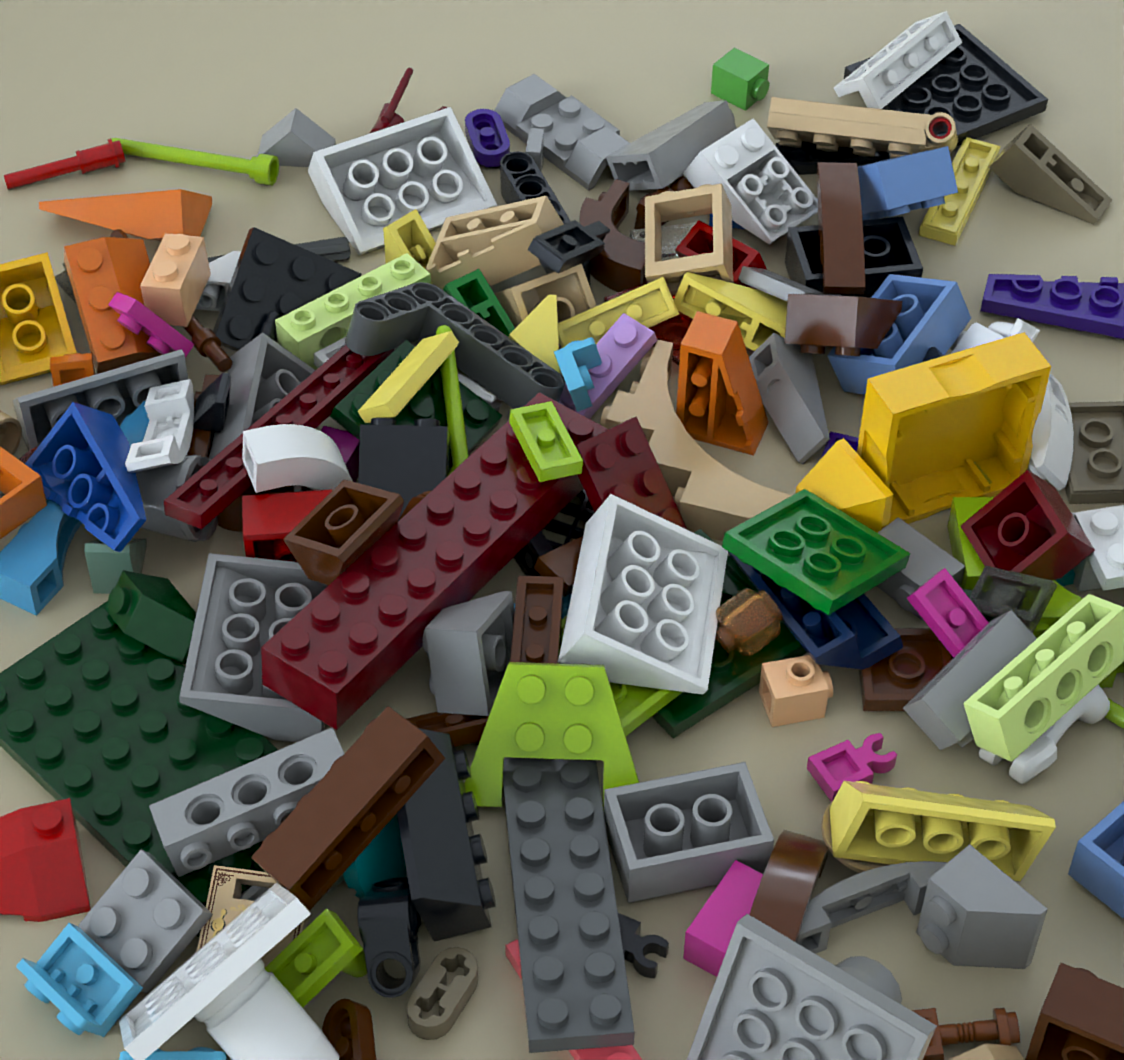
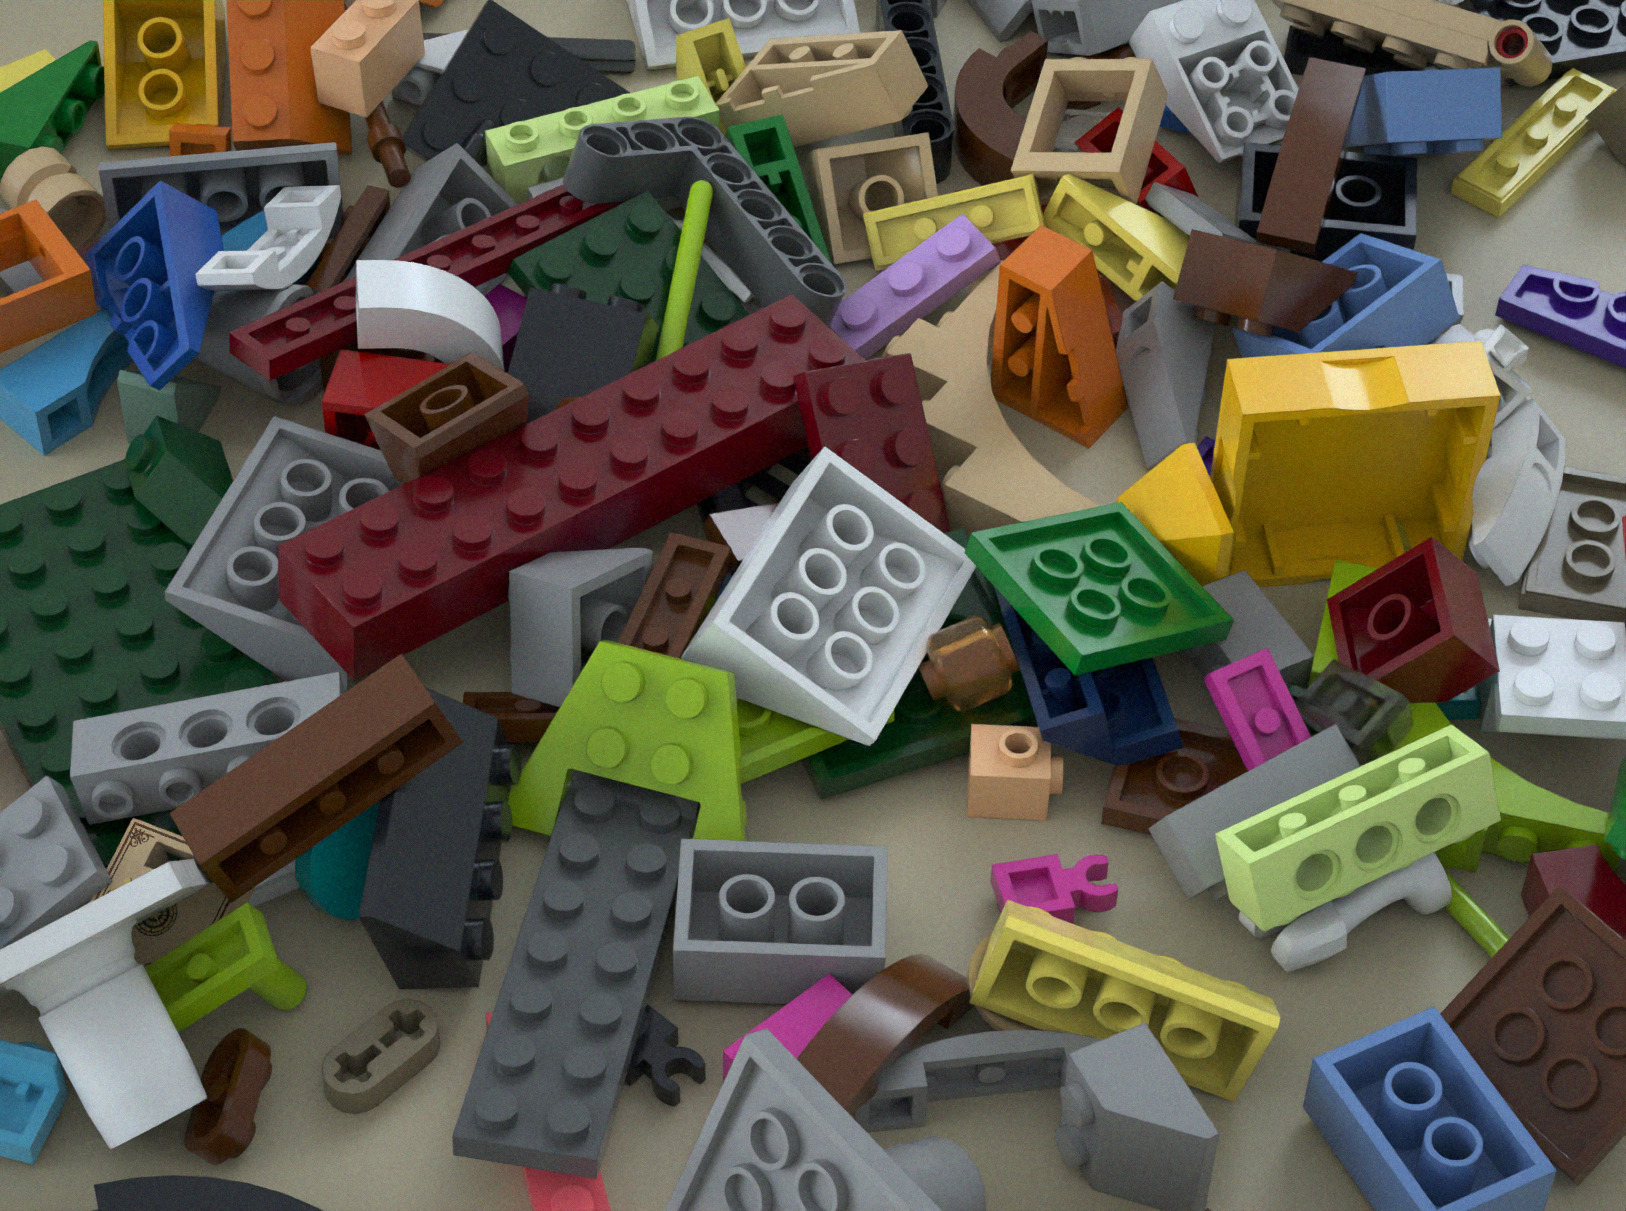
camera: 15 degrees right, 0 degrees up
(139, 318) = (295, 90): dark pink plate -> none
(213, 405) = (359, 227): black slope -> none
(389, 931) = (326, 954): black piece -> none
(409, 377) = (626, 239): light yellow tile -> none
(540, 332) = (835, 218): light yellow slope -> none
(545, 441) = (763, 359): lime plate -> none
(569, 245) = (916, 105): black hinge -> none
(574, 363) = (863, 272): medium azure bracket -> none

